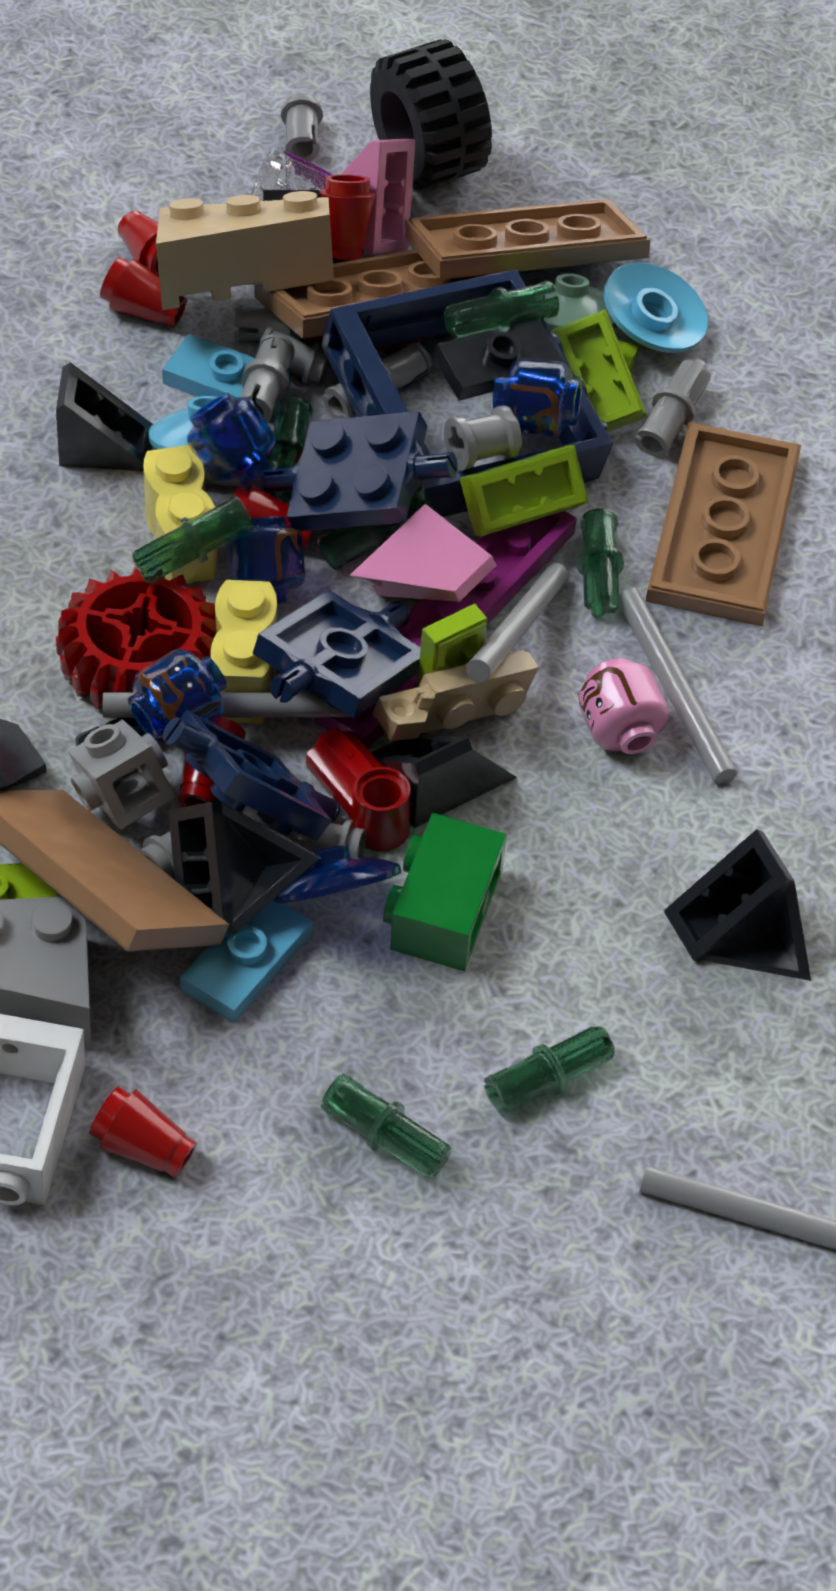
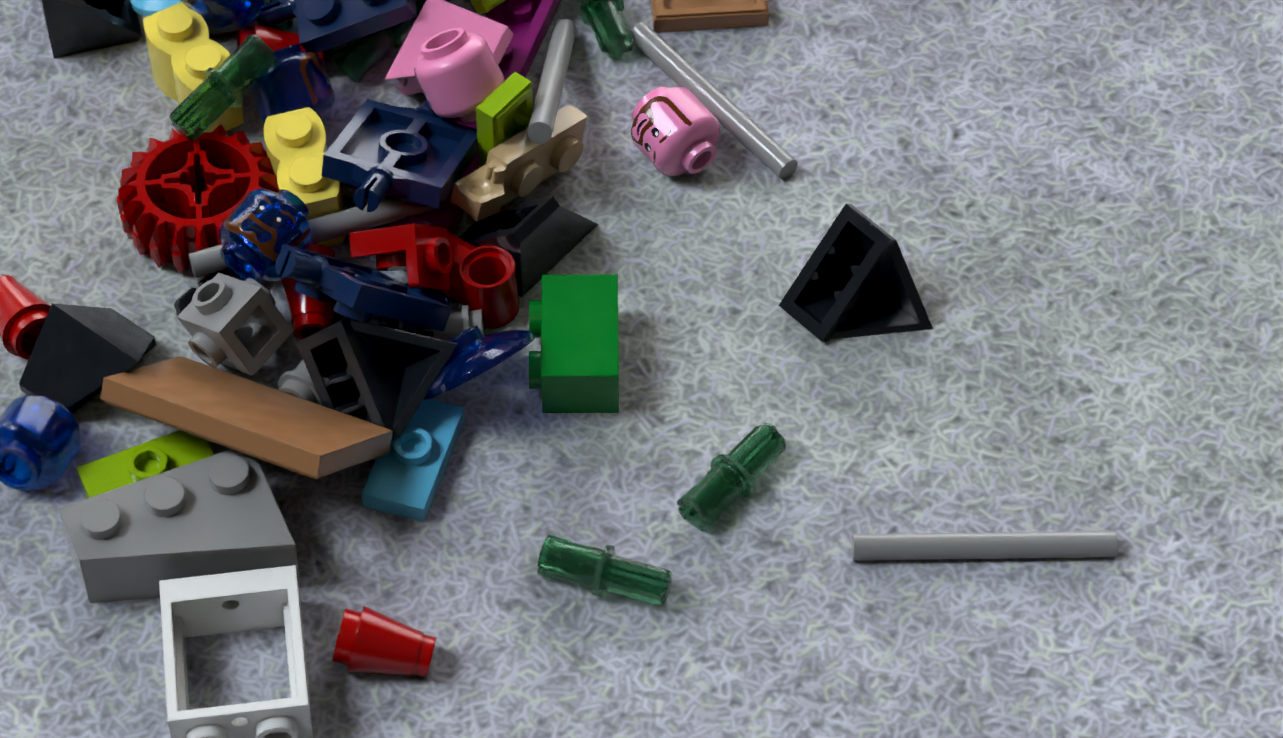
camera: 15 degrees left, 0 degrees up
(319, 753) = (409, 247): none -> red bracket
(419, 588) = (457, 73): none -> bright pink head

